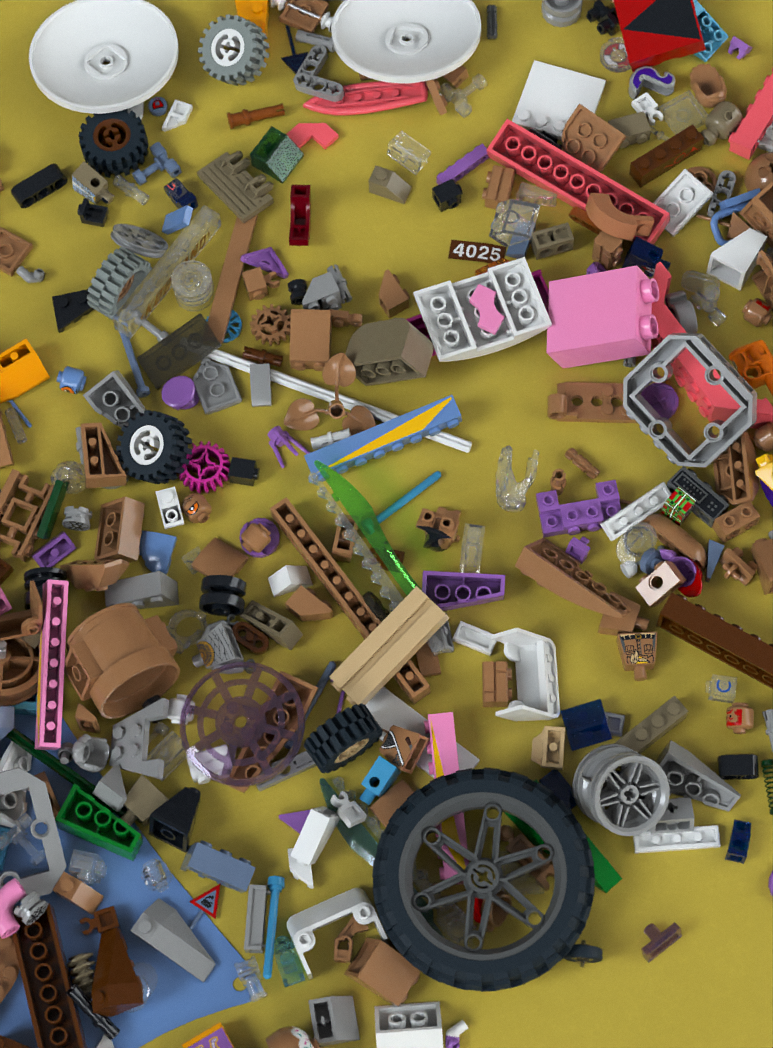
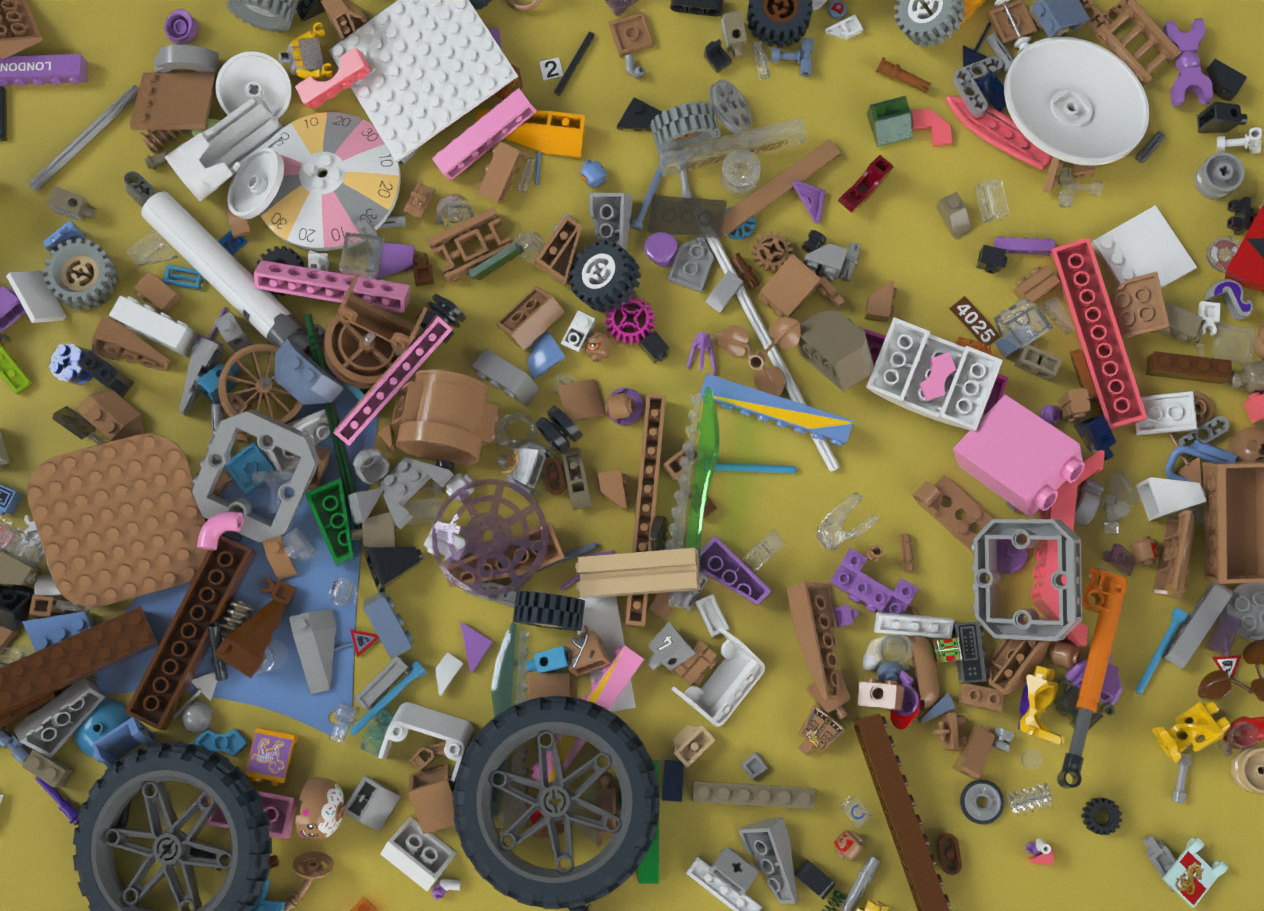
camera: 40 degrees right, 10 degrees up
(31, 908) = (232, 544): light grey wheel -> none
(54, 550) = (473, 292): medium lavender slope -> none
(65, 752) = (355, 448): light grey cylinder -> none
(77, 518) = (508, 282): light grey wheel -> none
(94, 573) = (484, 334): medium nougat wedge -> none
(177, 220) = (773, 112): medium blue tile -> none
(180, 195) = (792, 95): clear blue leg -> none
(237, 190) = (839, 124): dark tan hinge -> none
(257, 284) = (789, 210): medium nougat brick -> none
(289, 579) = (618, 457): white slope -> none
(314, 835) = (471, 661): white slope -> none
(329, 438) = (739, 376): white pin -> none
(336, 71) = (993, 90): none -> clear blue tile
(348, 811) = (509, 665): white plate -> none
(439, 528) = (753, 514): medium nougat hips -> none
(465, 689) = (669, 648): none -> light grey torso
(547, 137) = (1108, 276): black tile -> none
(586, 725) = (733, 750): clear blue slope -> none
(615, 222) = (1096, 389): nougat arch -> none
(634, 795) = (709, 826): light grey wheel -> none
(743, 332) = (1120, 559): none -> tile

